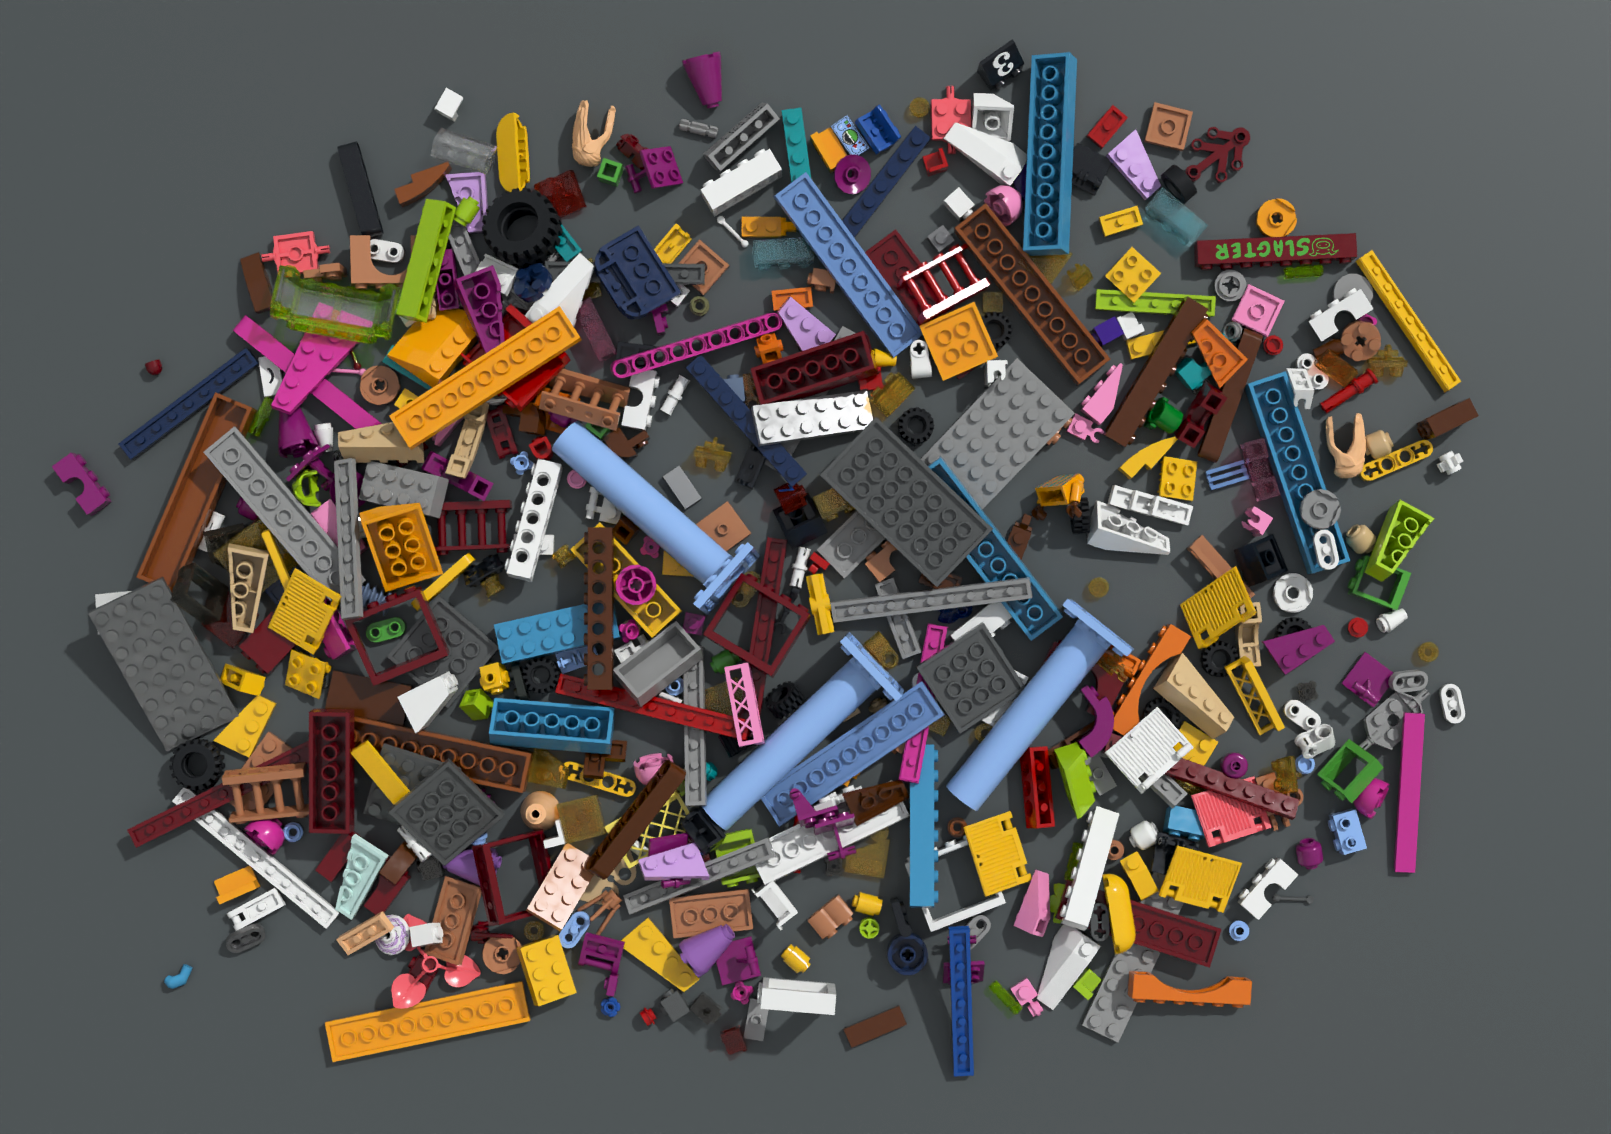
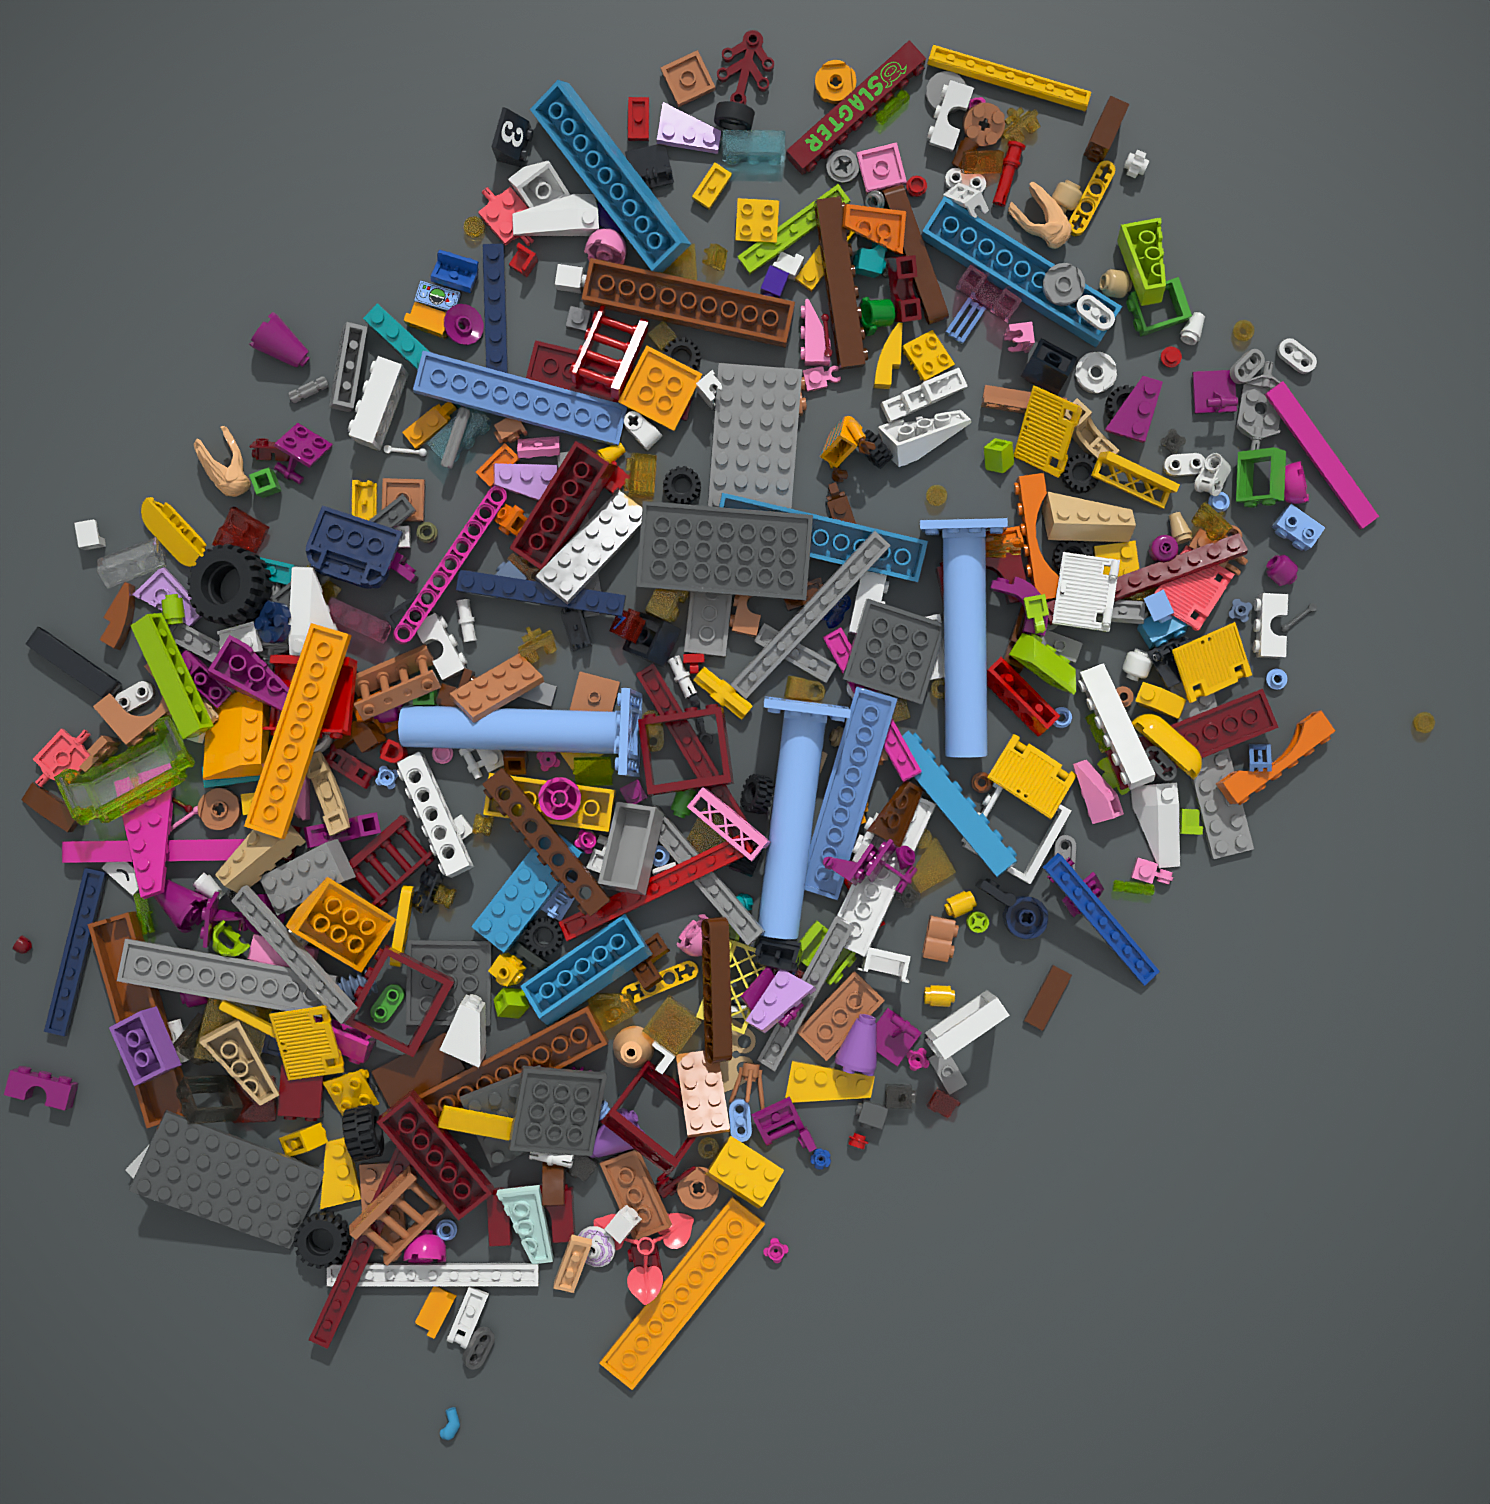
camera: 30 degrees left, 0 degrees up
(185, 516) = (145, 1046): none -> medium lavender brick
(291, 710) = (362, 1133): none -> black tyre
(518, 1052) = (775, 1256): none -> dark pink plate
(656, 464) = (496, 687): none -> nougat plate
(677, 583) = (593, 771): none -> clear neon green piece
(777, 254) = (455, 438): none -> light grey axle
(833, 310) = (538, 447): none -> bright pink plate
(854, 836) = (905, 857): none -> magenta plate
(1062, 828) = (1067, 720): none -> light blue plate
(1101, 733) = (1036, 609): none -> lime plate
(1104, 416) = (828, 352): none -> dark red hinge
(1169, 595) = (999, 455): none -> lime panel
(1173, 983) = (1260, 764): none -> medium blue tile
(1194, 805) = (1159, 606): none -> light blue brick
(1255, 851) = (1234, 611): none -> sand blue plate
(1258, 760) = (1179, 528): none -> tan cone
(1322, 1052) = (1424, 722): none -> clear yellow plate

